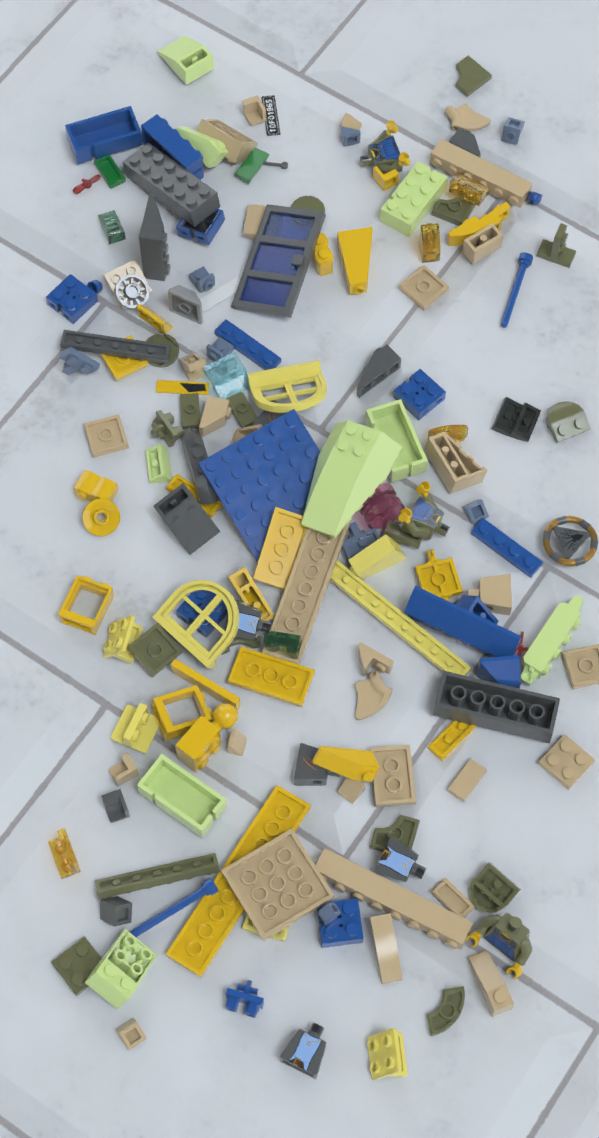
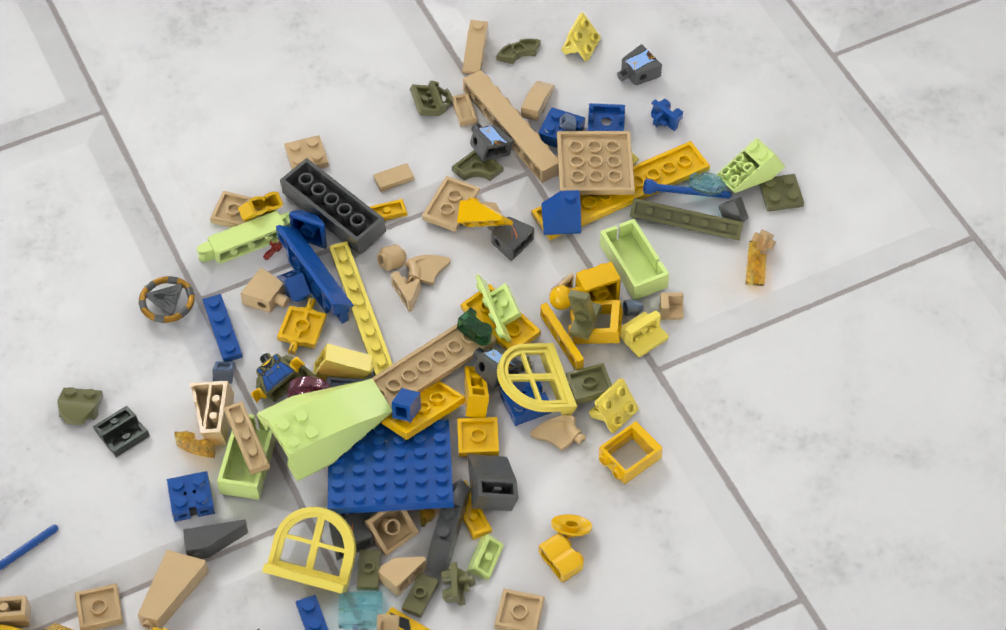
camera: 150 degrees left, 10 degrees down
(69, 888) = (764, 240): none -> tan gear
(115, 806) = (692, 285): dark grey panel -> none
(131, 1033) = (765, 135): tan slope -> none
(154, 596) = (559, 432): none -> tan arm
(158, 750) = (632, 307): none -> sand blue hose
(158, 929) = (706, 183): none -> clear light blue tile
(188, 694) = (585, 314): none -> olive bracket
(223, 556) = (478, 436): none -> yellow plate
(276, 676) = (501, 306): none -> yellowish green bracket
(276, 808) = (562, 213): none -> blue slope
(292, 532) = (406, 405): none -> blue brick
(307, 947) = (614, 112): none -> blue piece
(381, 321) = (170, 588): none -> tan slope
(407, 686) = (391, 257): none -> tan head
(411, 446) = (246, 438): none -> tan tile
(507, 936) = (443, 63): olive torso -> none
(559, 668) = (260, 206): none -> yellow brick

